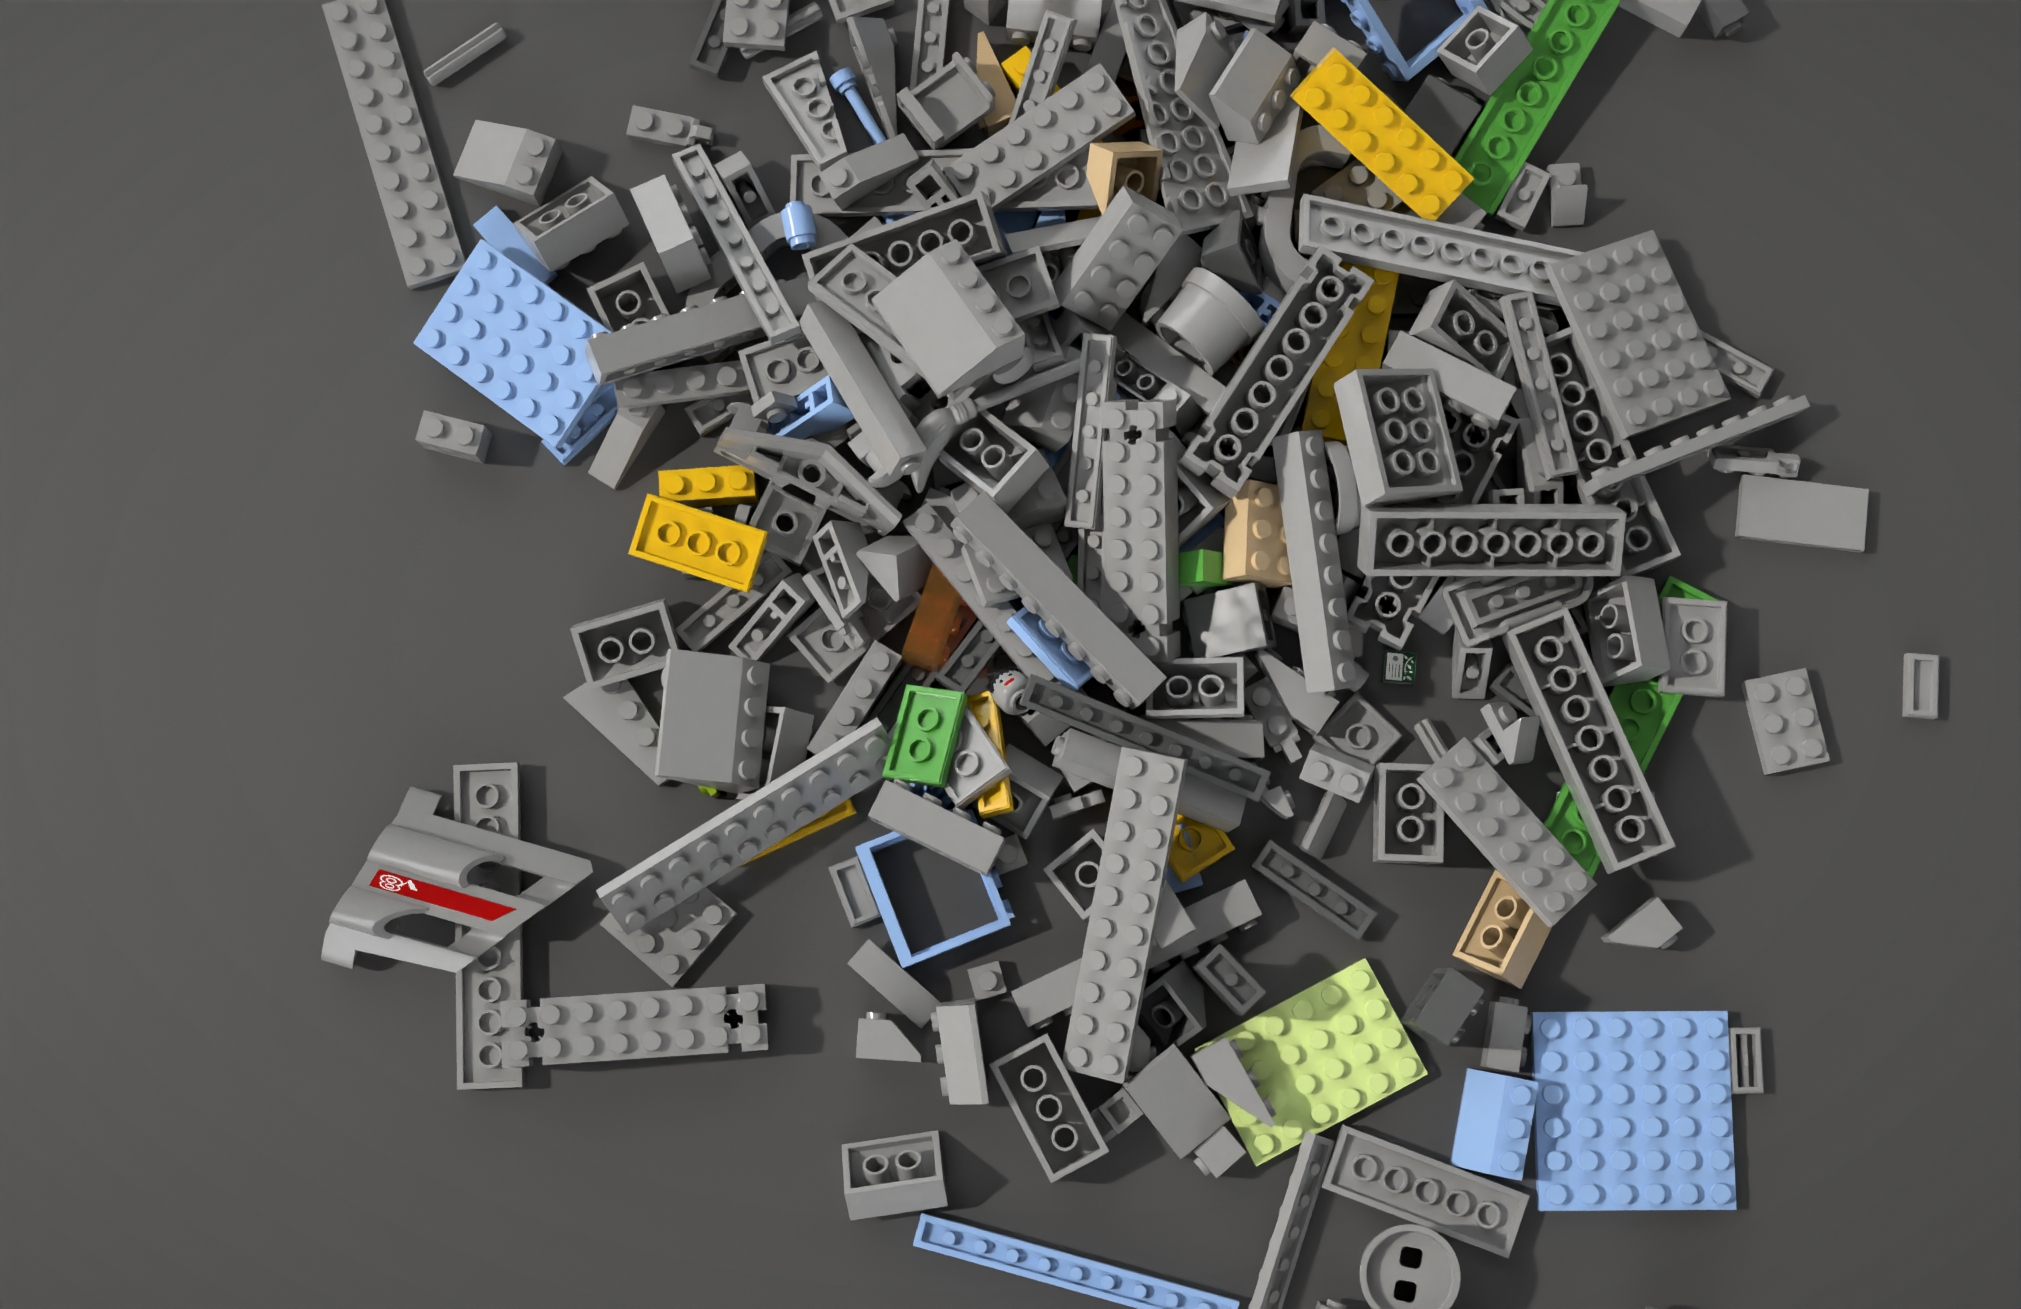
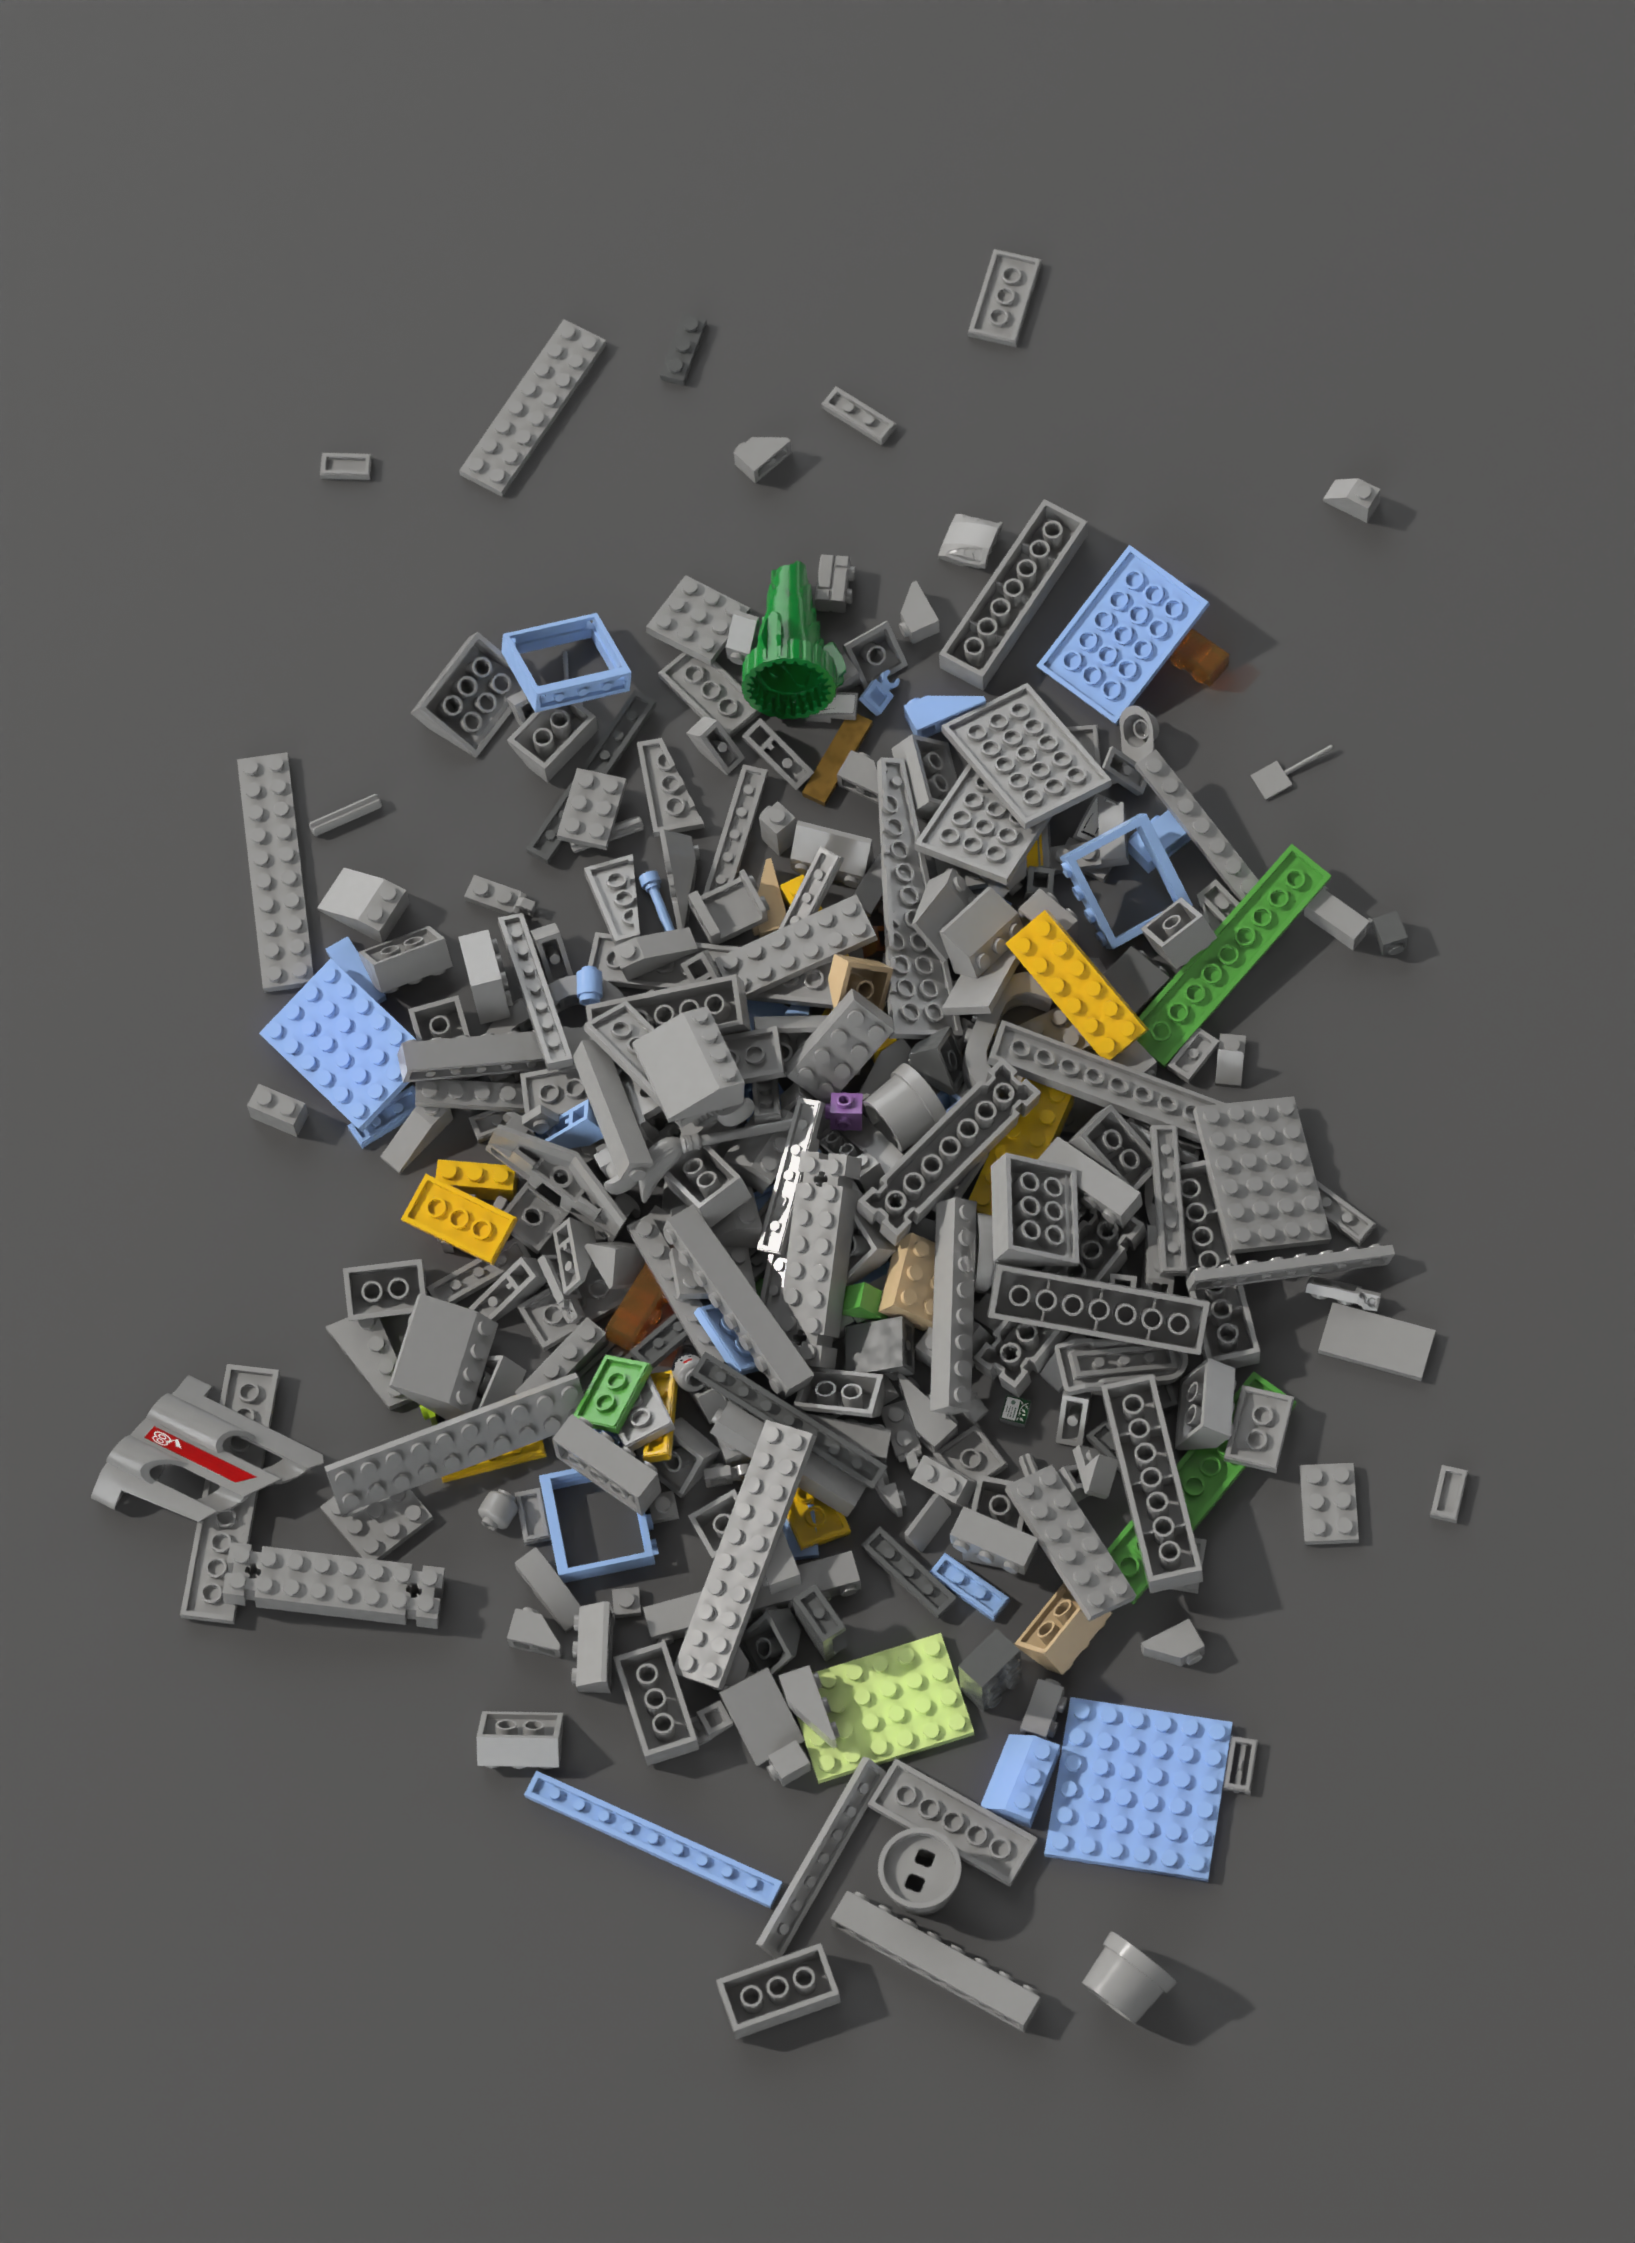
camera: 15 degrees right, 15 degrees down
(813, 893) = (498, 1509): none -> light grey head
(1136, 335) = (845, 1111): none -> medium lavender brick
(1386, 893) = (970, 1587): none -> light blue tile
(1417, 848) = (993, 1541): none -> light grey brick

